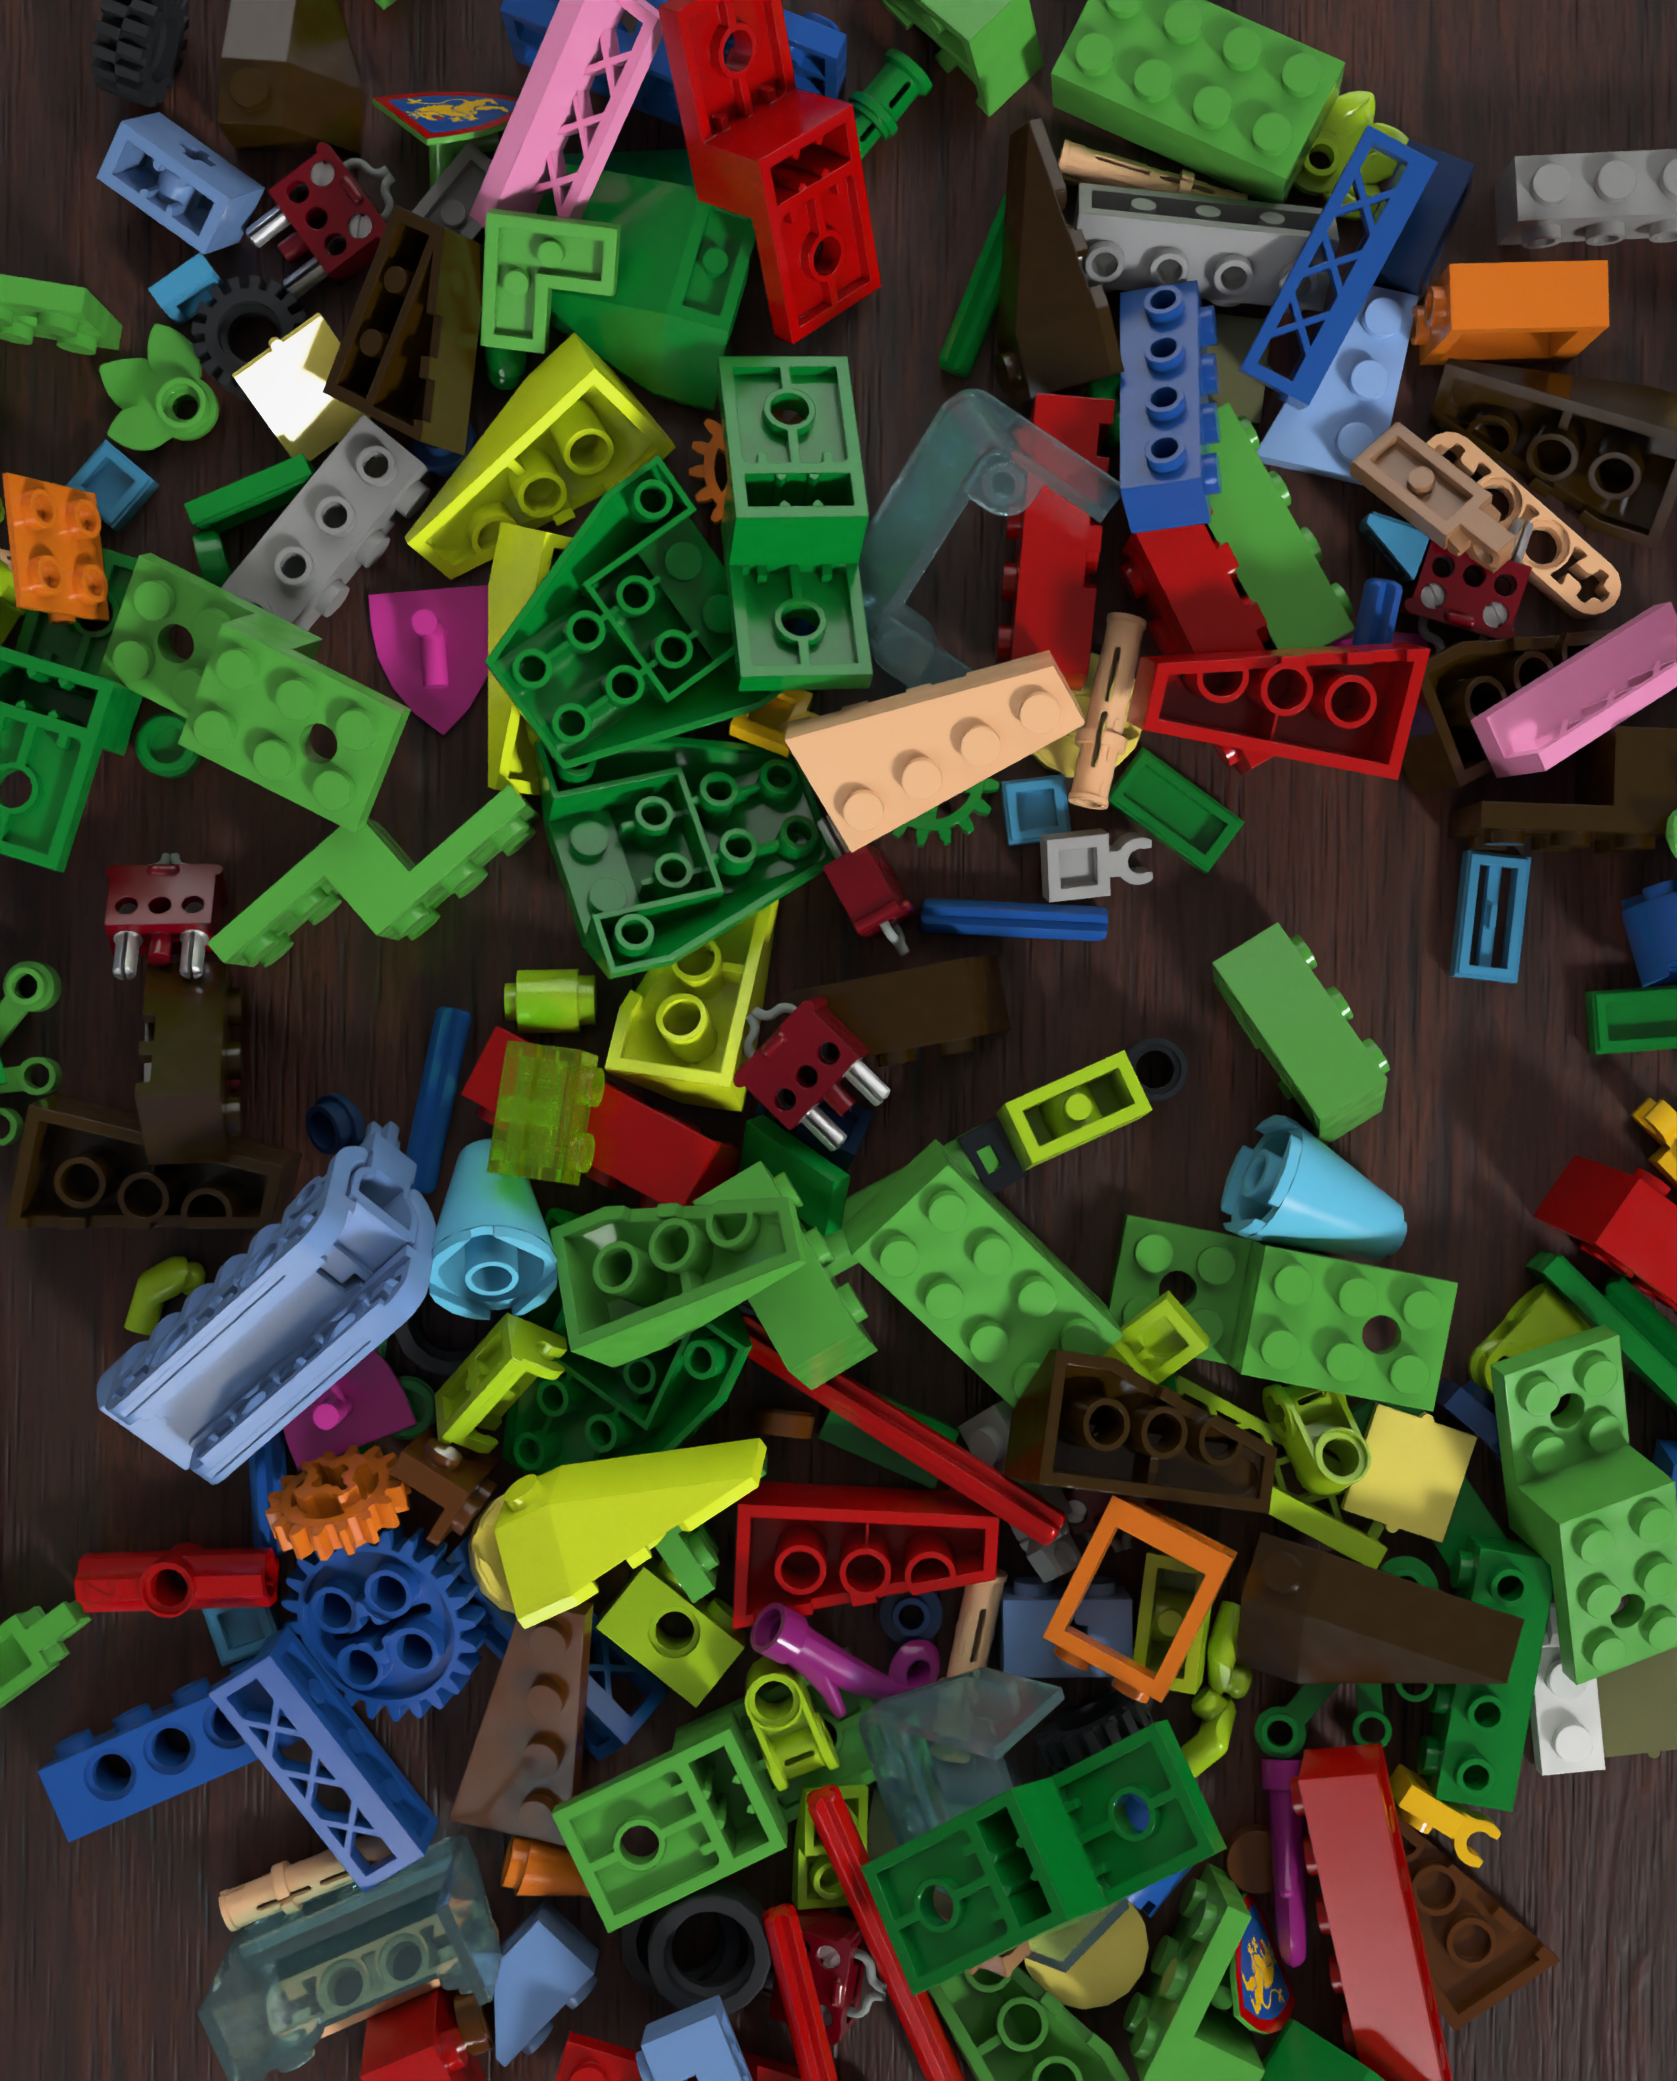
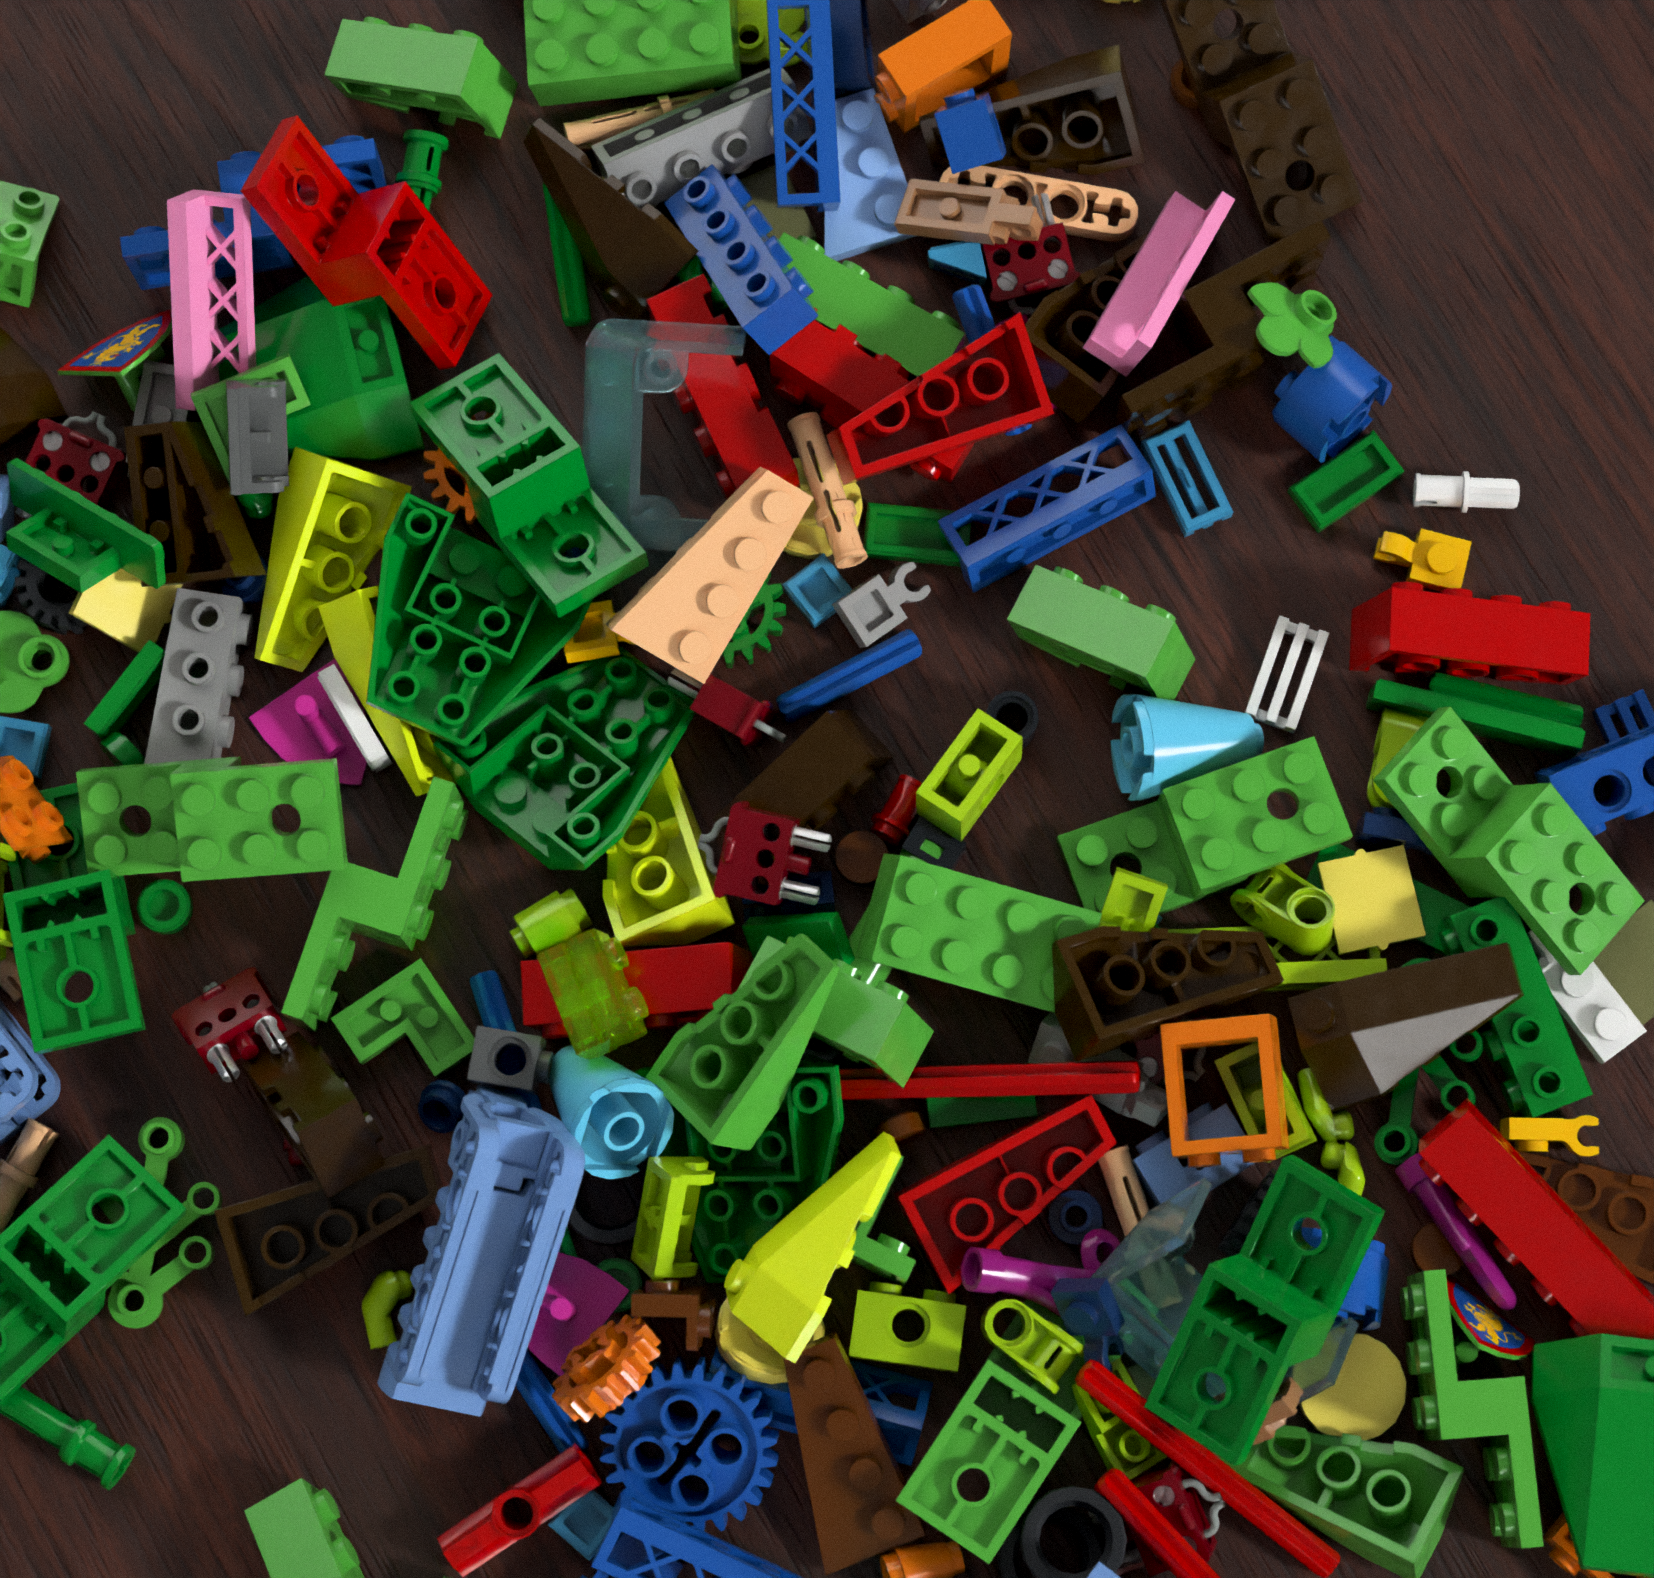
camera: 25 degrees left, 10 degrees down
(277, 296) = (75, 536): none -> green bracket
(362, 1001) = (411, 1007): none -> bright green plate
(395, 1123) = (489, 1047): none -> dark grey brick
(470, 669) = (354, 719): none -> white tile
(533, 297) = (257, 436): none -> dark grey hinge
(864, 1739) = (1091, 1312): none -> dark blue plate
(913, 1117) = (860, 857): none -> reddish brown tile
(981, 1092) = (898, 812): none -> red pin
(1328, 887) = (1053, 524): none -> blue fence
(1482, 1203) = (1300, 632): none -> white tile
(1495, 407) = (969, 130): none -> blue brick

